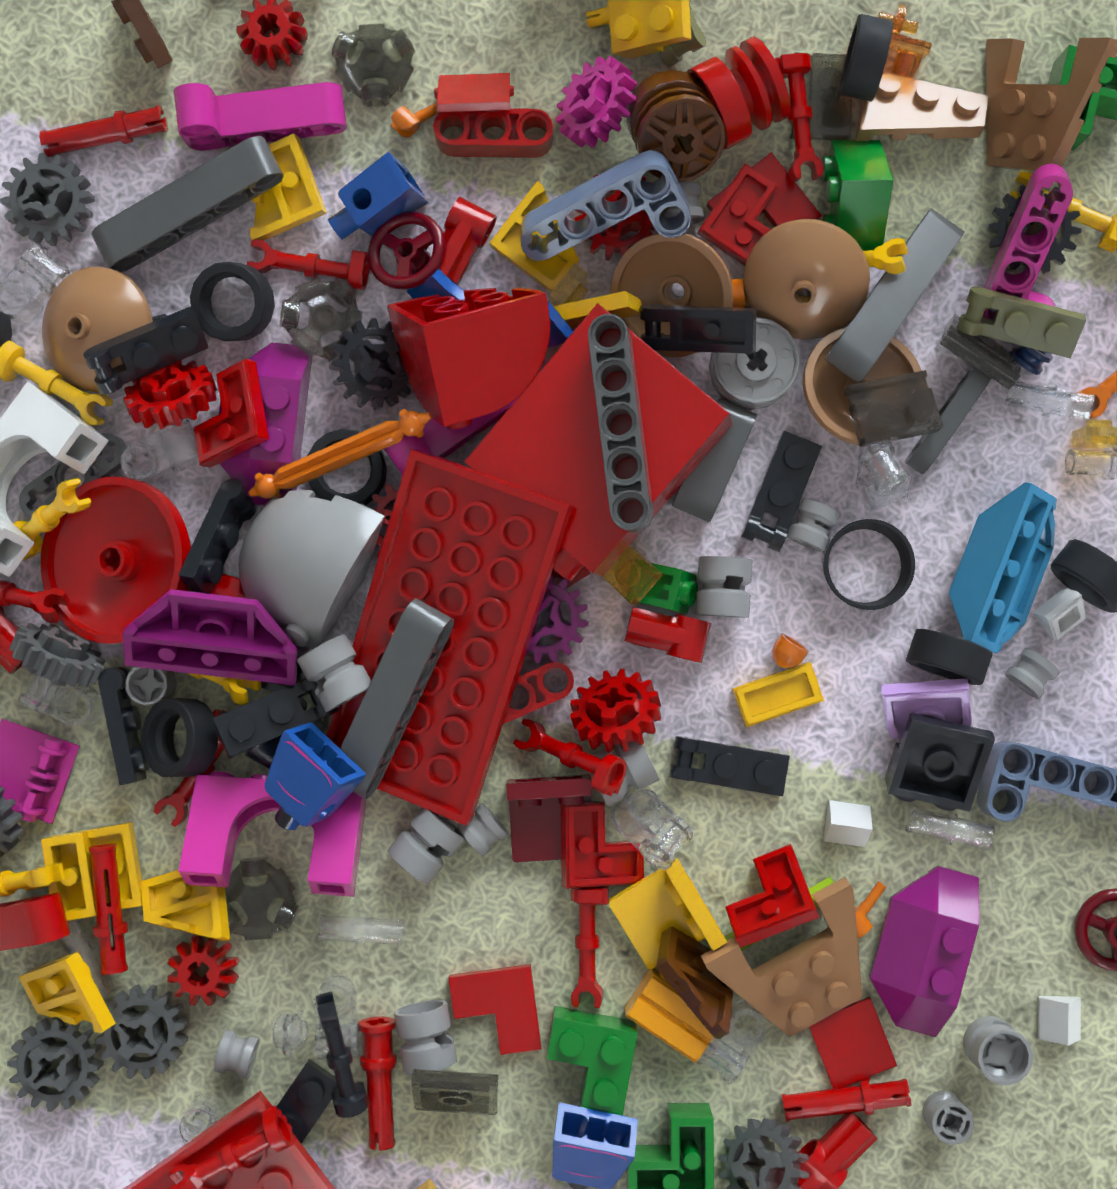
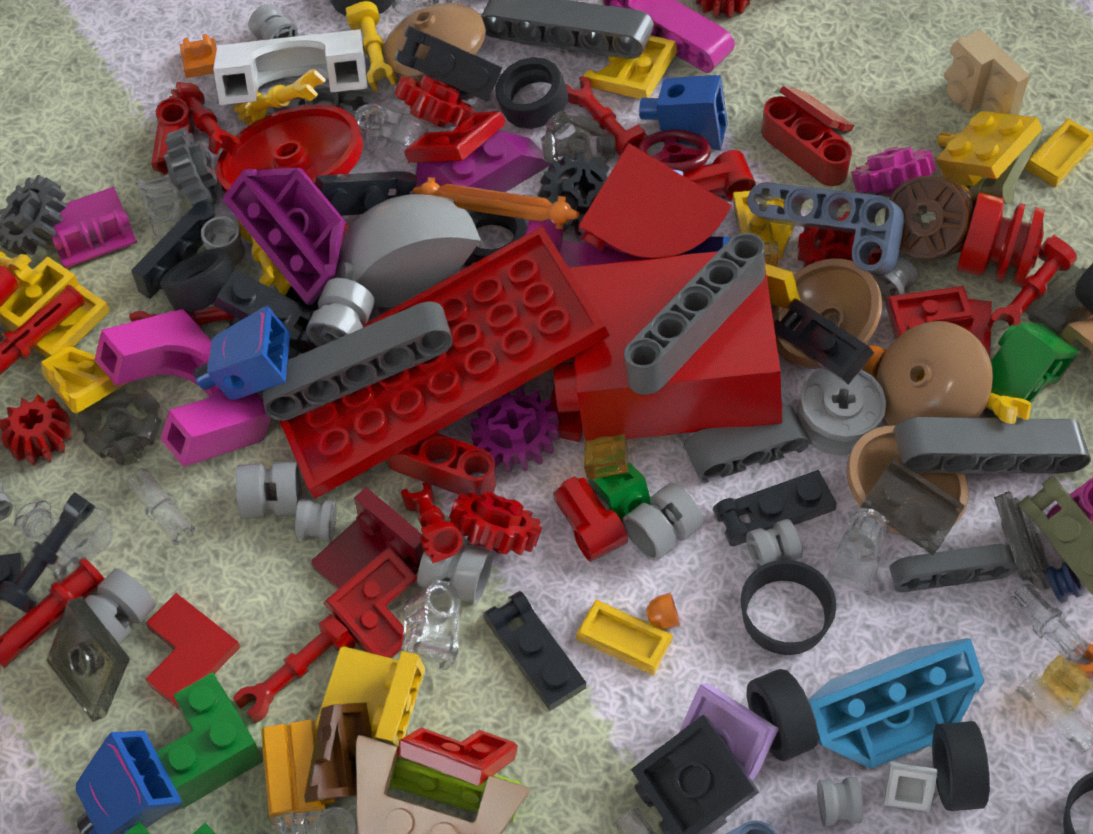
camera: 50 degrees right, 30 degrees down
(373, 63) = (768, 44): clear smoke piece -> none
(406, 123) = (755, 97): orange hand -> none
(848, 823) = (575, 776): white slope -> none

